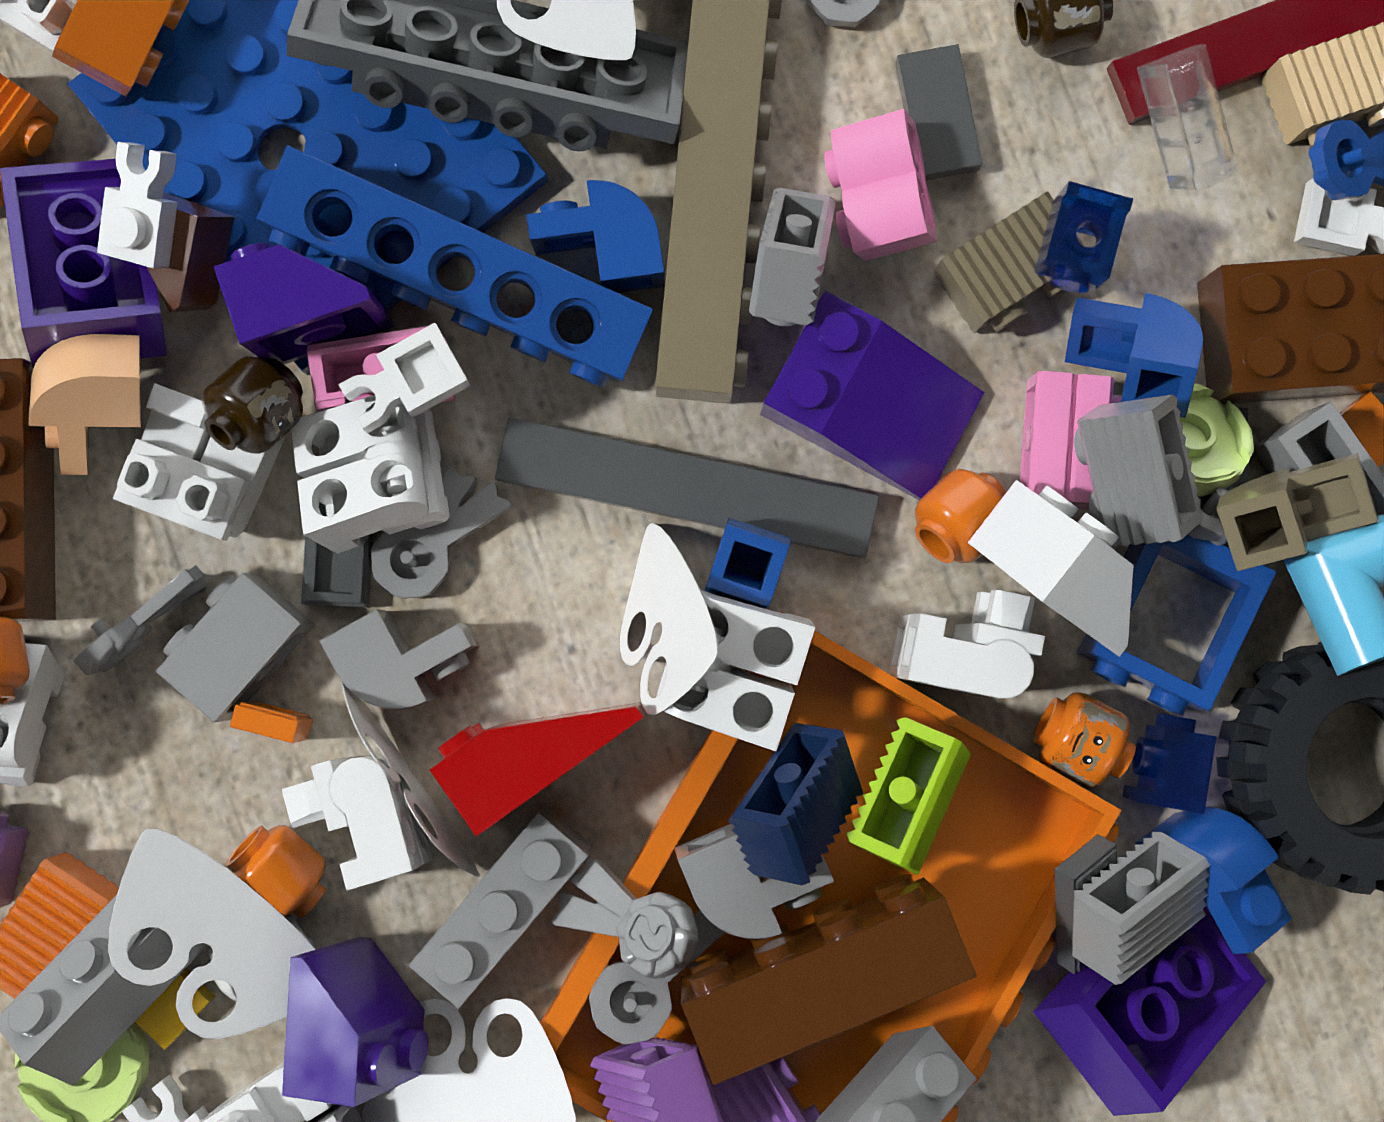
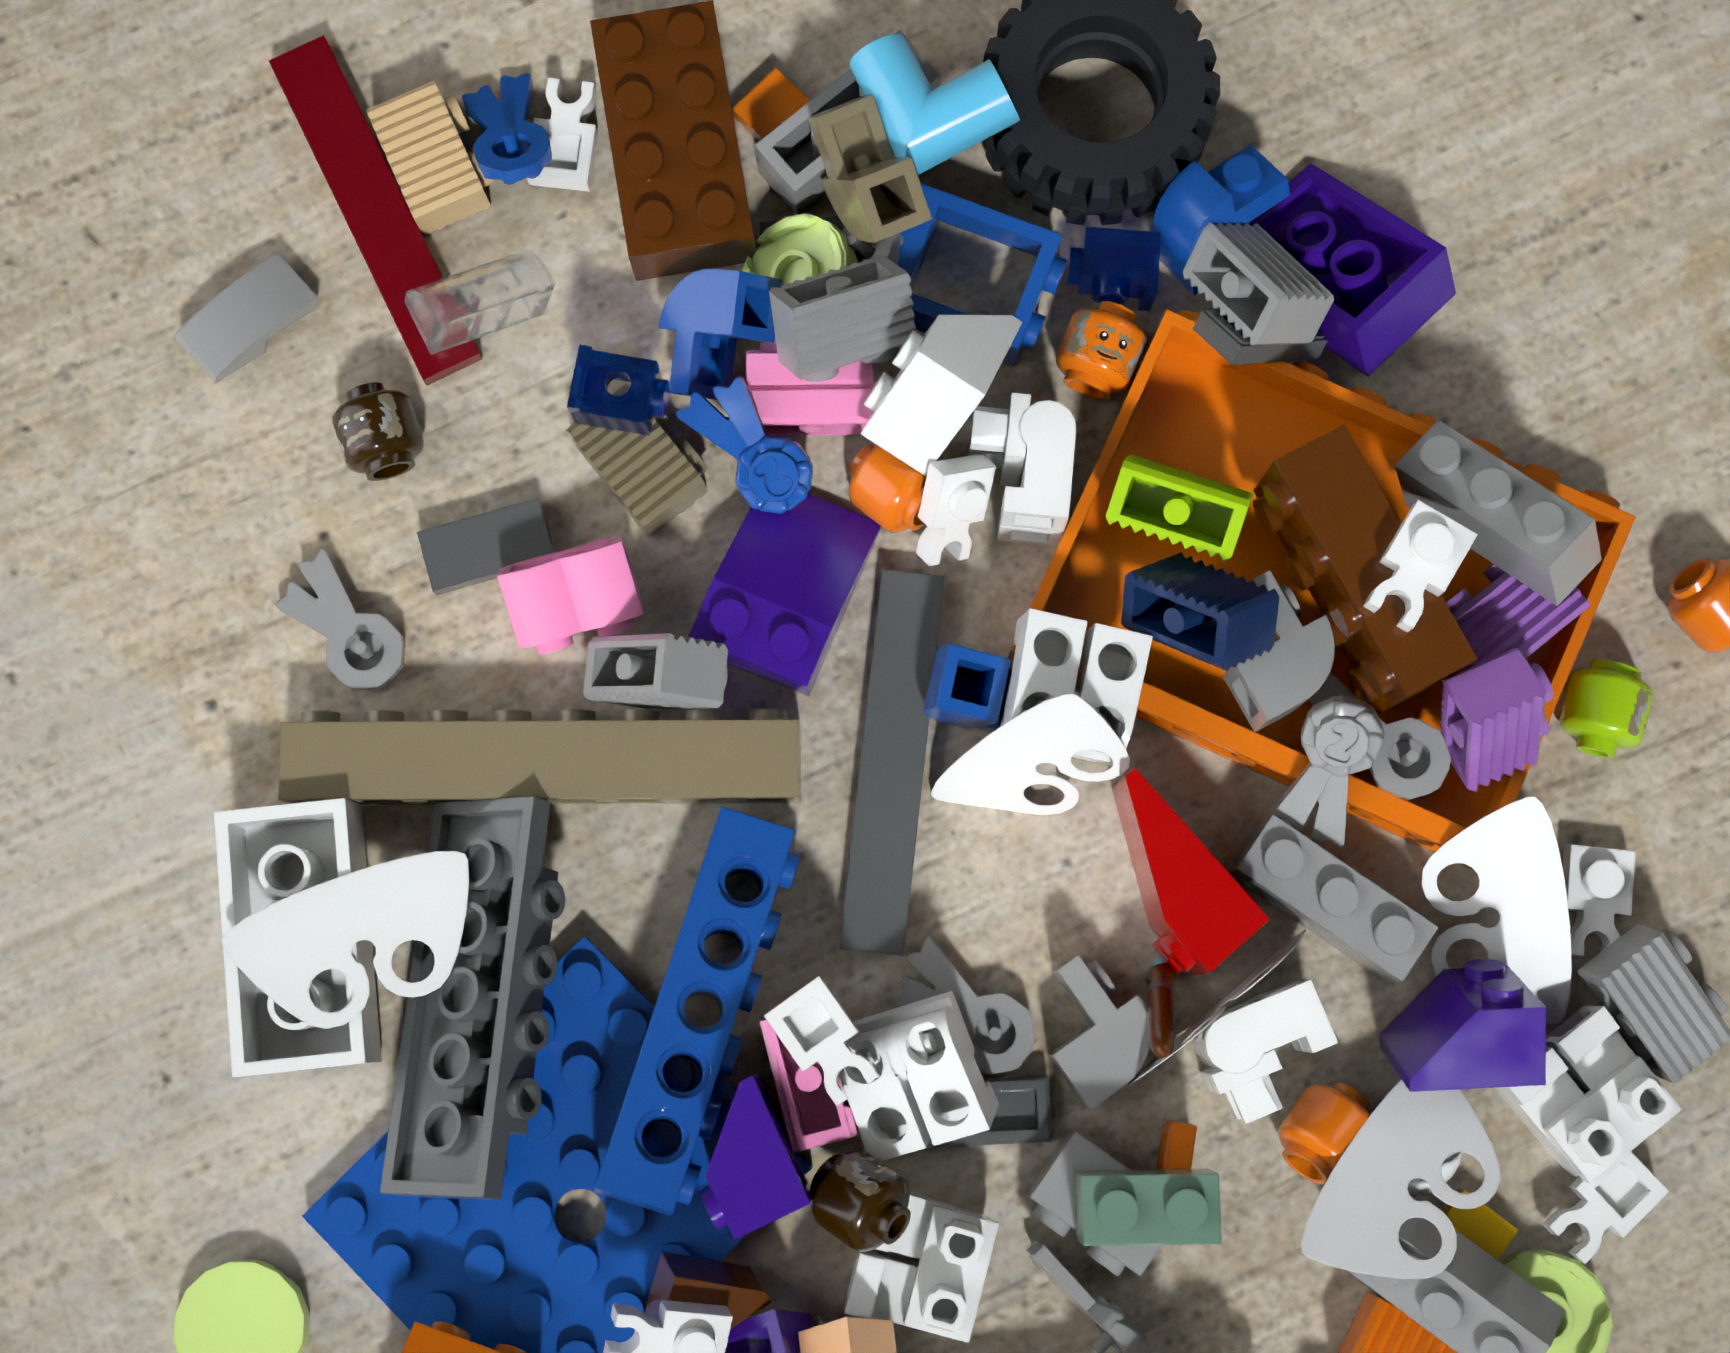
camera: 90 degrees left, 5 degrees down
(211, 682) = (1147, 1207): none -> sand green brick
(407, 720) = (1161, 1007): none -> reddish brown piece
(614, 224) = (633, 853): blue brick -> none
(826, 1041) = (1423, 557): none -> white plate
(942, 568) = (952, 499): none -> white plate
(990, 391) = (771, 469): none -> blue piece

